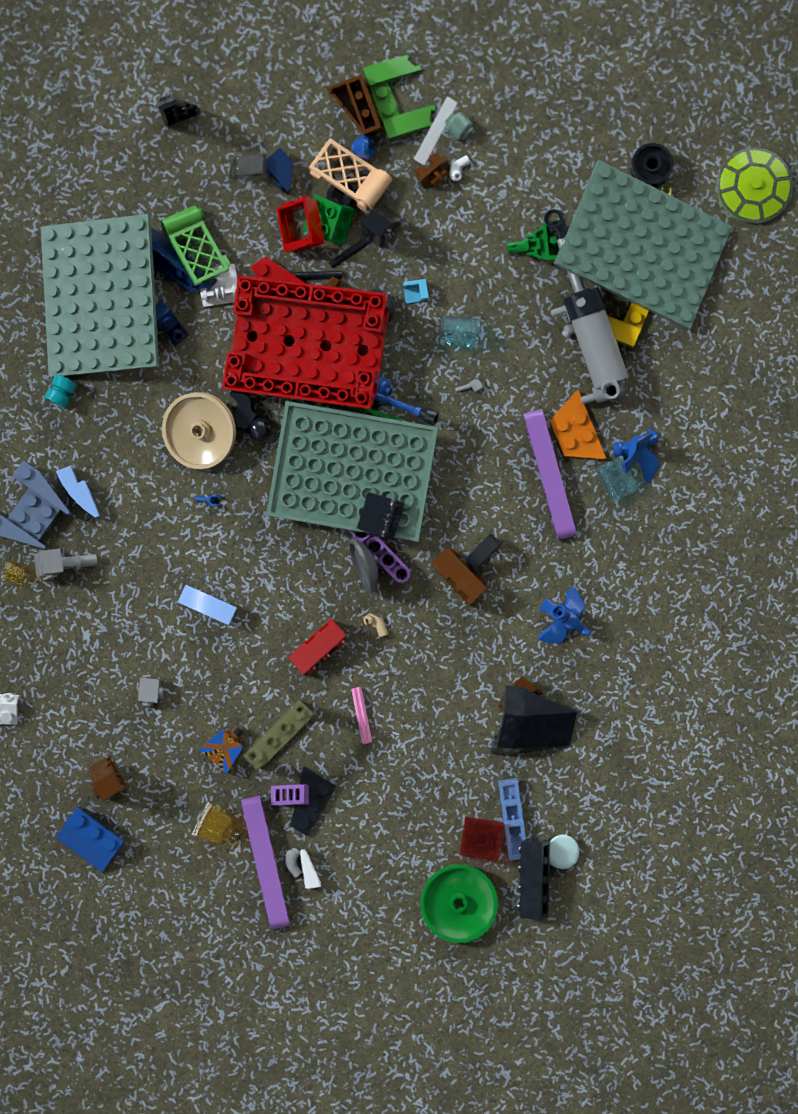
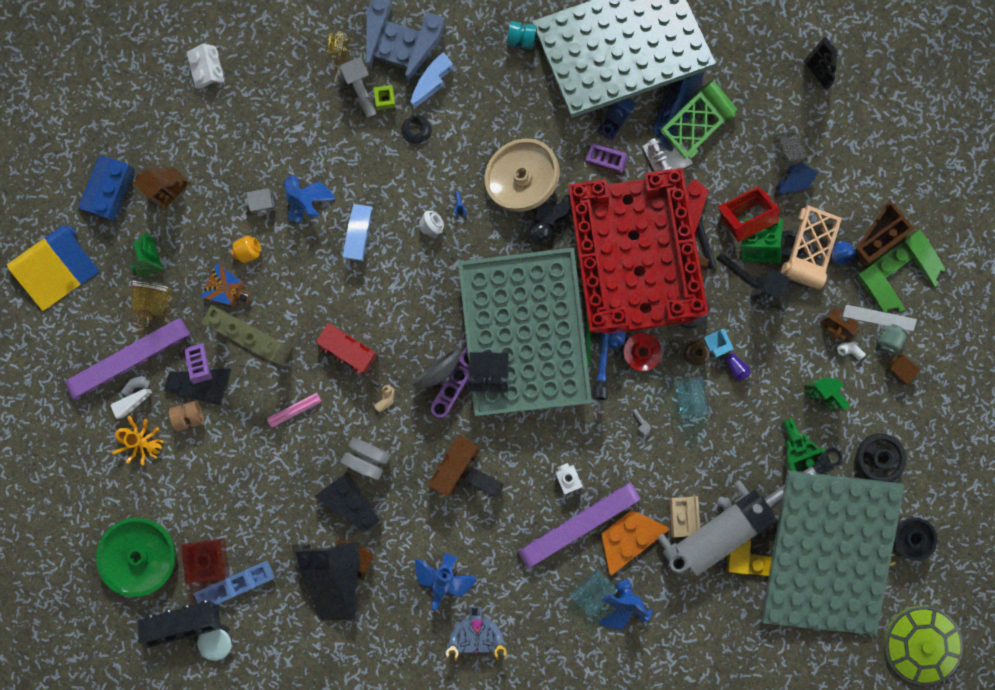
camera: 70 degrees right, 0 degrees up
(77, 536) = (384, 91): none -> lime plate
(131, 523) = (420, 137): none -> black piece
(154, 910) = (53, 267): none -> yellow door
(158, 647) = (303, 198): none -> blue animal
(172, 817) = (145, 256): none -> green wedge
(192, 718) = (246, 249): none -> light orange head
(209, 327) = (619, 169): none -> medium lavender slope
(219, 531) = (431, 223): none -> white cone
(337, 819) = (182, 416): none -> medium nougat wheel
(346, 876) = (136, 440): none -> light orange animal
(398, 356) = (652, 351): none -> red dish
(422, 320) = (692, 358): none -> dark brown head
(427, 656) = (365, 458): none -> light grey wheel
(444, 279) = (737, 367): none -> dark purple cone
(465, 685) = (349, 502): none -> black wedge
(489, 202) = (827, 390): none -> green brick
(490, 125) = (902, 369): none -> reddish brown brick
(502, 471) = (568, 478): none -> white brick
(569, 154) = (897, 453): none -> black wheel
(569, 372) = (684, 516): none -> tan plate
(625, 601) = (476, 635): none -> sand blue torso

